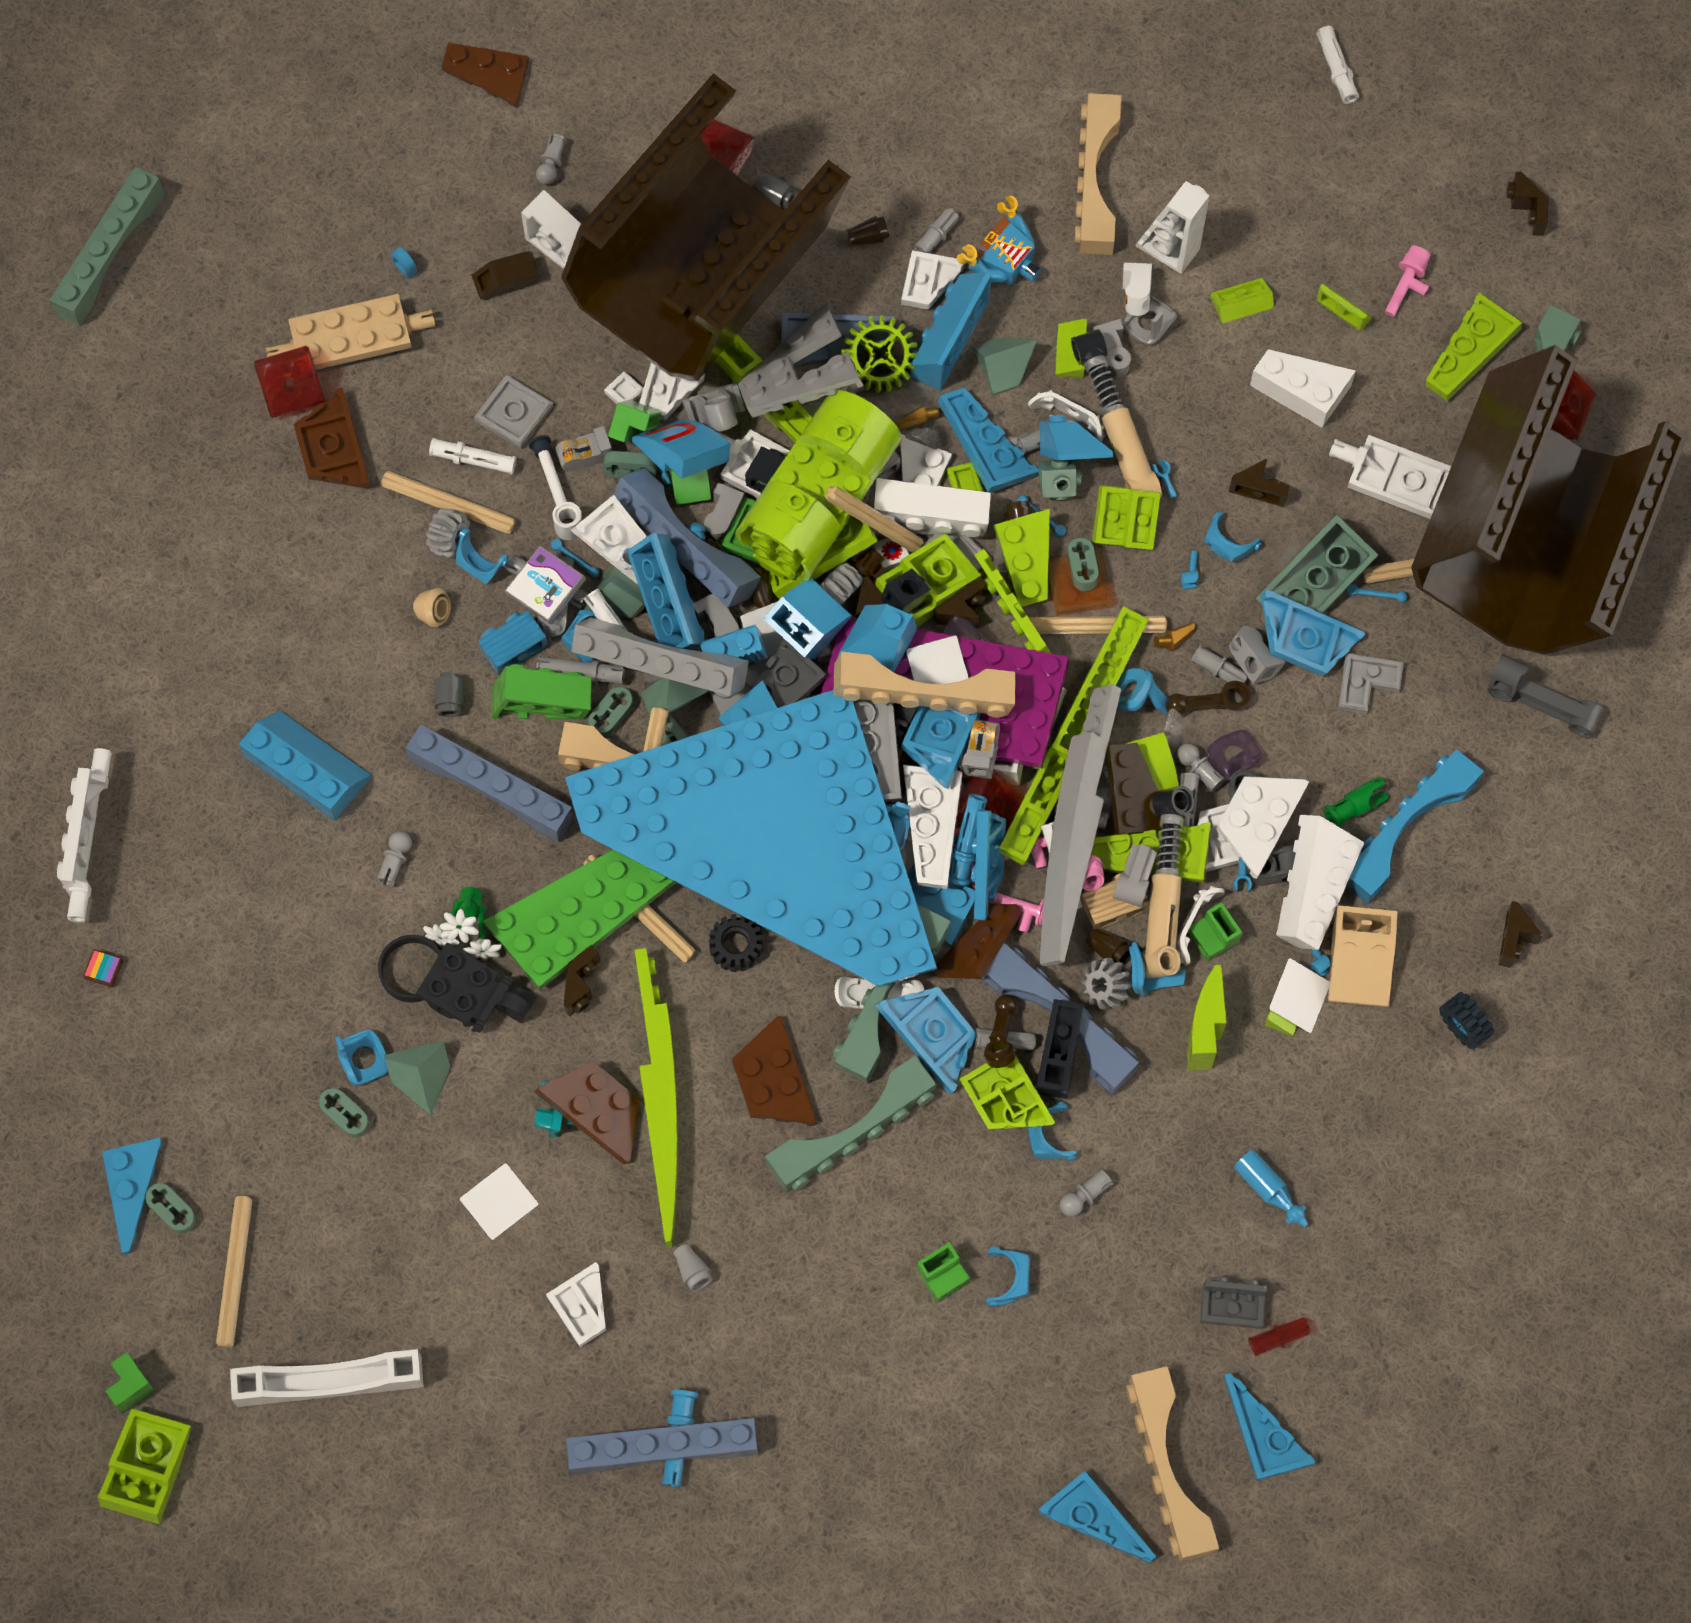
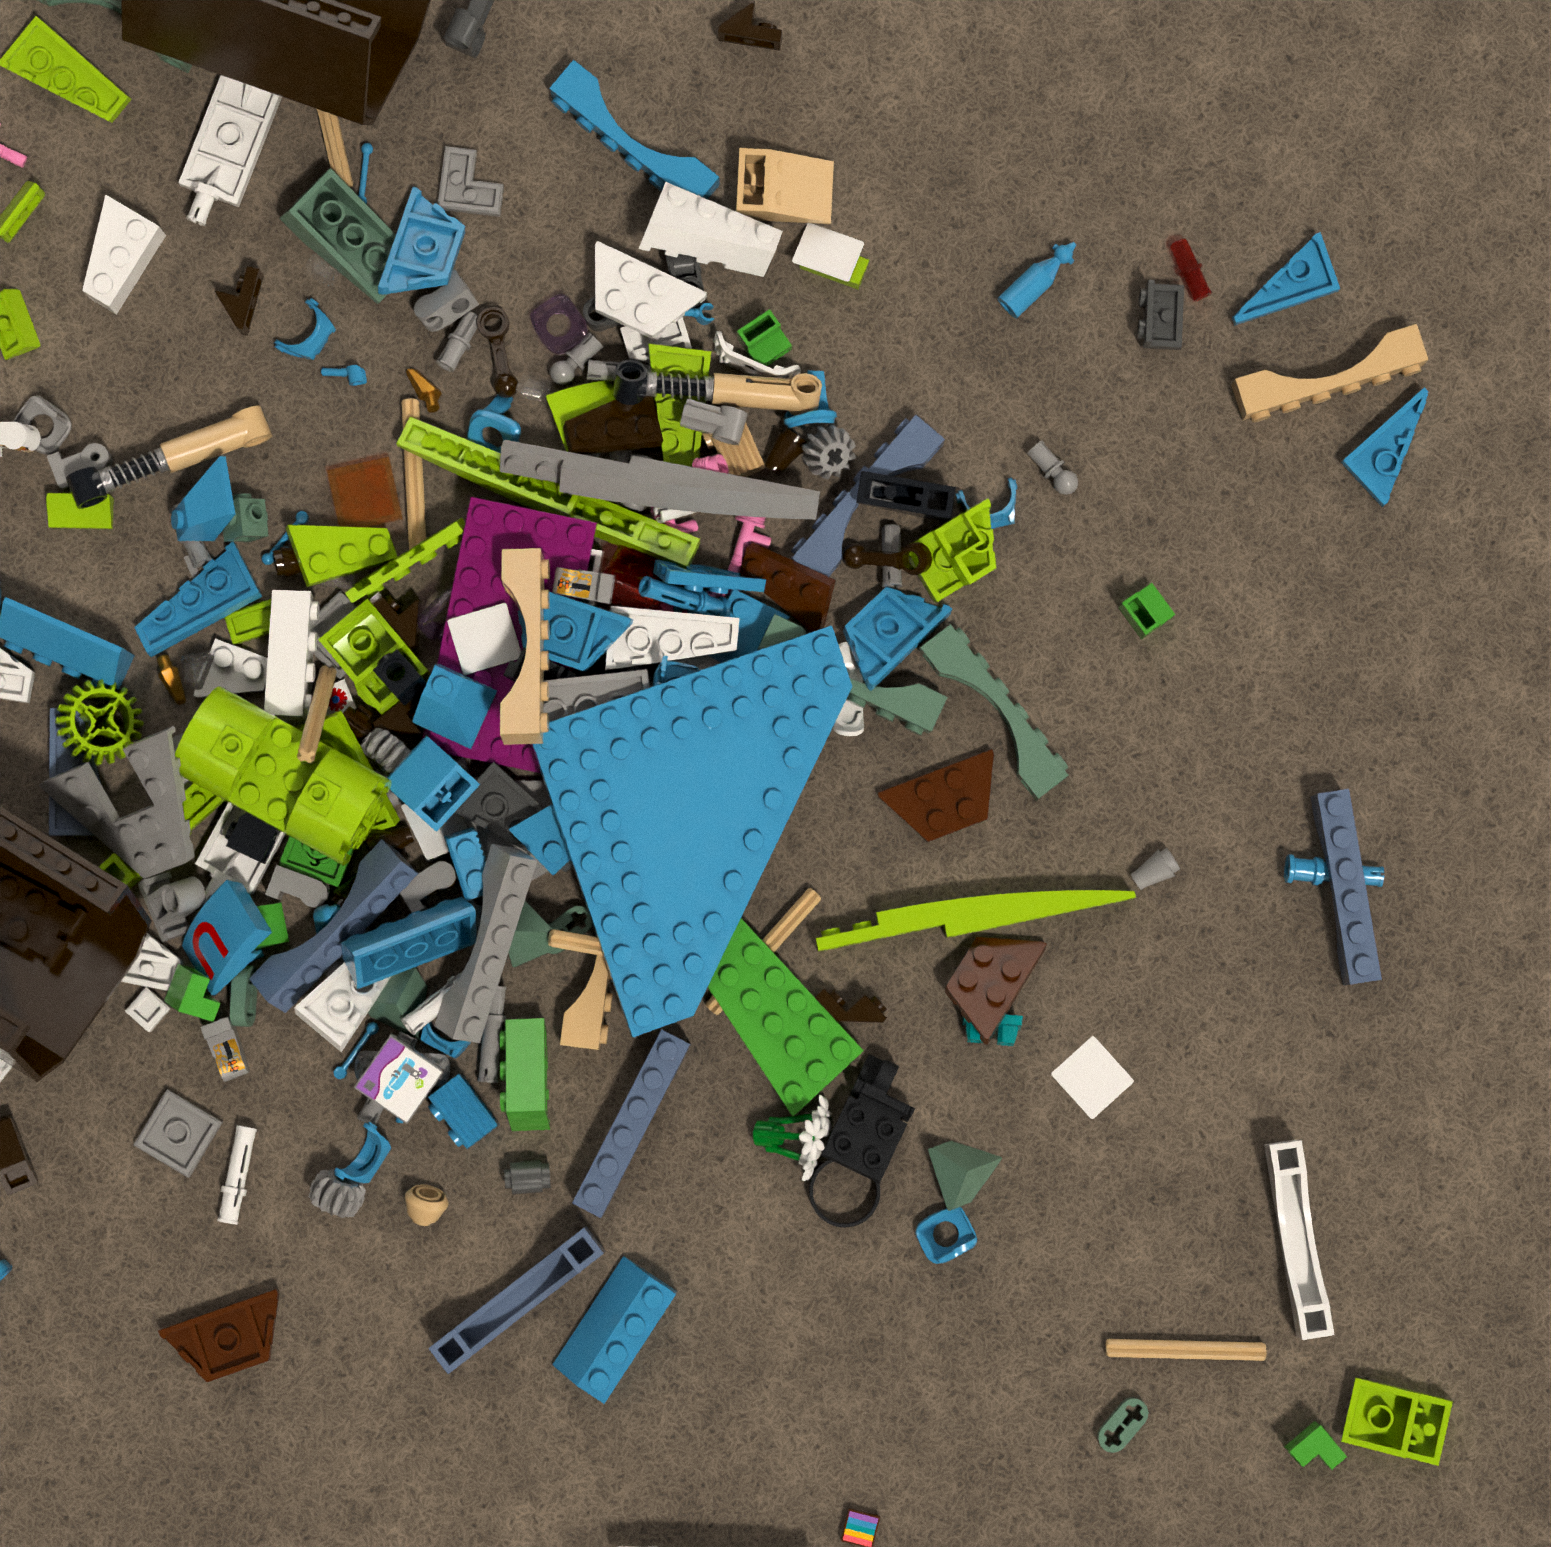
camera: 90 degrees left, 15 degrees up
(128, 1177) = (1090, 1472): dark azure wing -> none
(272, 377) = (139, 1394): clear red brick -> none
(339, 680) = (517, 1300): none -> sand blue arch
(339, 1118) = (1014, 1255): sand green beam -> none
(354, 331) = (89, 1328): tan plate -> none
(399, 843) = (703, 1217): light grey pin -> none
(448, 501) = (293, 1198): tan axle -> none
(563, 509) = (226, 1096): white piece -> none
(581, 1305) = (1201, 982): white wing -> none
(615, 716) = (543, 991): sand green beam -> none
(735, 960) = (819, 849): black tyre -> none
(1004, 362) = (98, 584): sand green slope -> none
(1021, 1283) = (1138, 529): dark azure helmet -> none
(1050, 400) = (173, 483): white piece -> none
(1088, 563) = (348, 496): sand green beam -> none
(1126, 517) = (288, 443): lime slope -> none
(1164, 476) = (231, 405): dark azure hand -> none
(1207, 1023) = (865, 346): lime slope -> none
(1321, 964) = (791, 231): dark azure hand -> none
(1356, 802) = (610, 195): green piece -> none
(1466, 1020) = (851, 79): black bush -> none

